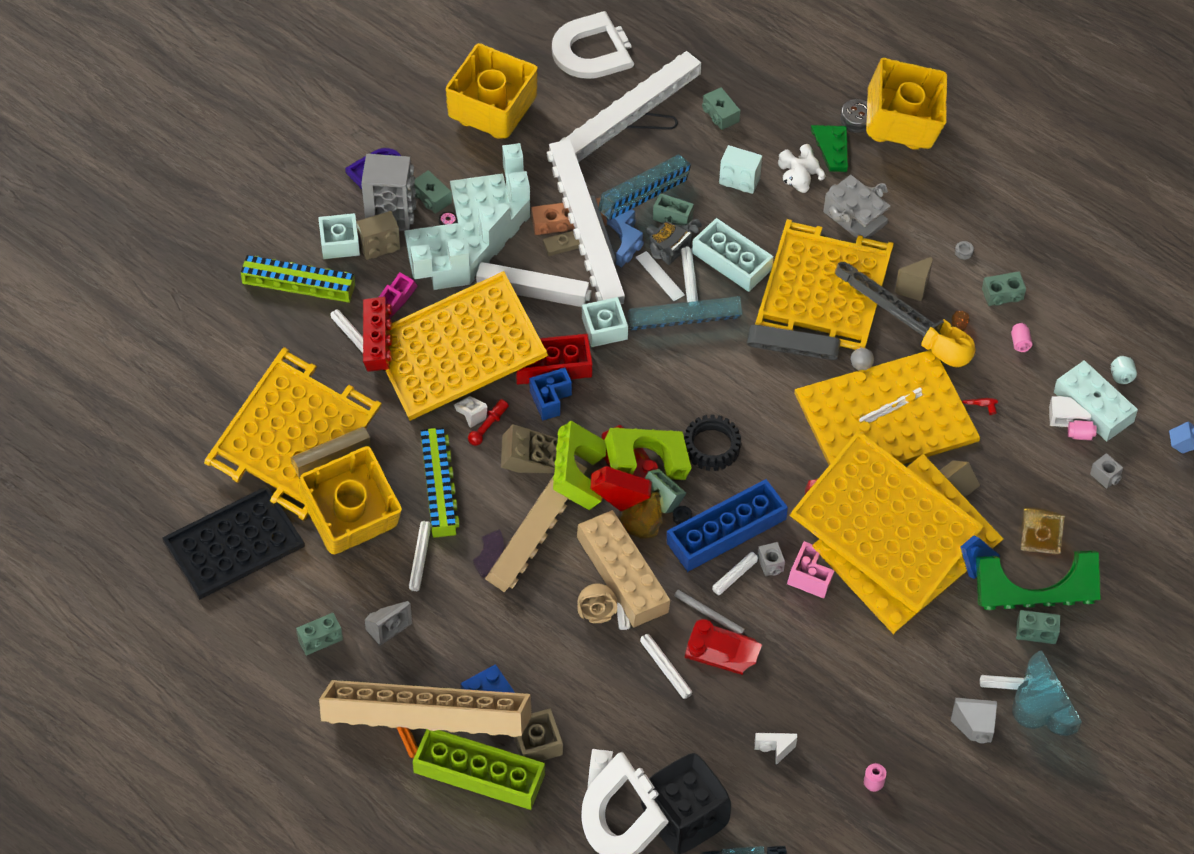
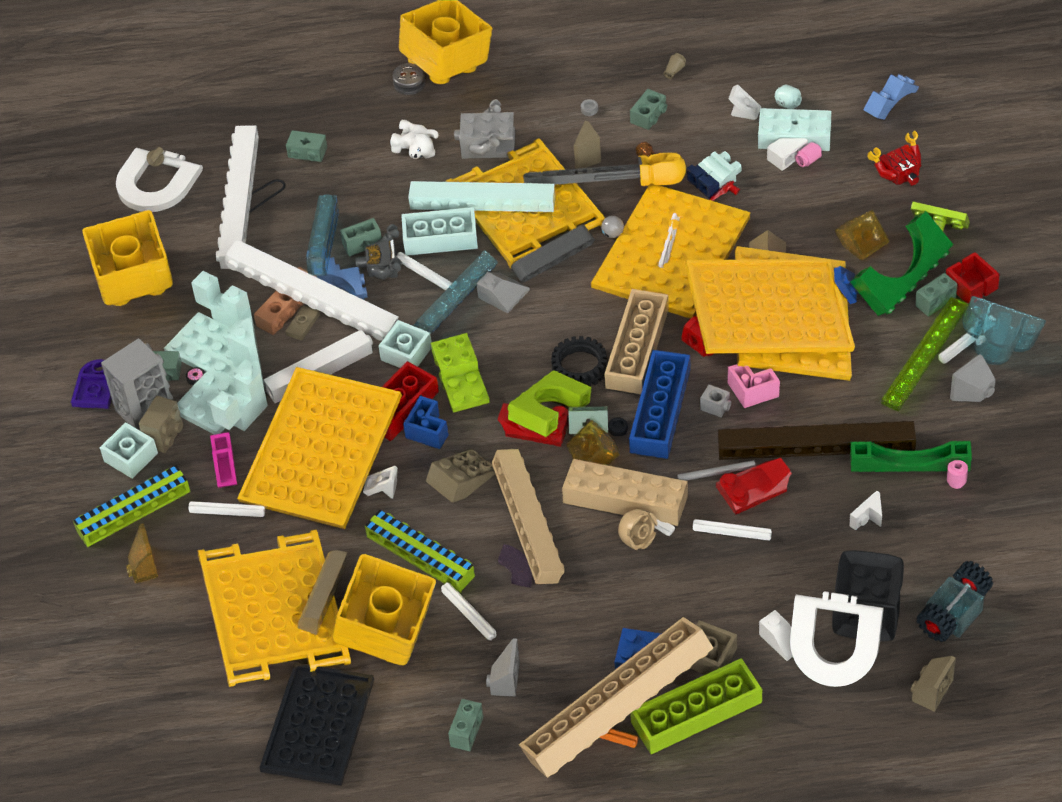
camera: 40 degrees left, 5 degrees down
(261, 321) = (140, 558): none -> clear yellow slope
(377, 334) = (248, 489): red brick -> none
(476, 437) = (405, 500): red pin -> none
(567, 476) = (499, 440): lime arch -> none
(606, 30) = (155, 157): none -> dark tan plate
(617, 375) = (459, 372): none -> lime piece
(620, 488) = (562, 438): red slope -> none
(660, 276) = (404, 289): white sticker -> none
(725, 338) = (500, 290): none -> light grey slope
(735, 573) = (701, 431): white axle -> none
(740, 169) = (375, 172): light aqua brick -> none
(771, 459) = (636, 340): none -> tan brick
(792, 254) = (482, 196): none -> light aqua brick
(807, 656) = (812, 439): none -> dark brown brick
(830, 709) = (875, 458): none -> green arch
(833, 146) = (416, 110): green wing -> none
(969, 665) = (924, 354): none -> clear neon green plate
(990, 382) = (713, 173): none -> hips
(1021, 337) = (698, 130): bright pink brick -> none
(1068, 270) = (674, 65): none -> dark tan cone
(1079, 644) = (976, 277): none -> red piece
(1082, 345) = (744, 104): none -> white slope
(1104, 465) = (856, 166): light grey brick -> none
(1115, 569) = (942, 216): none -> lime plate
(1142, 499) = (900, 164): none -> red torso

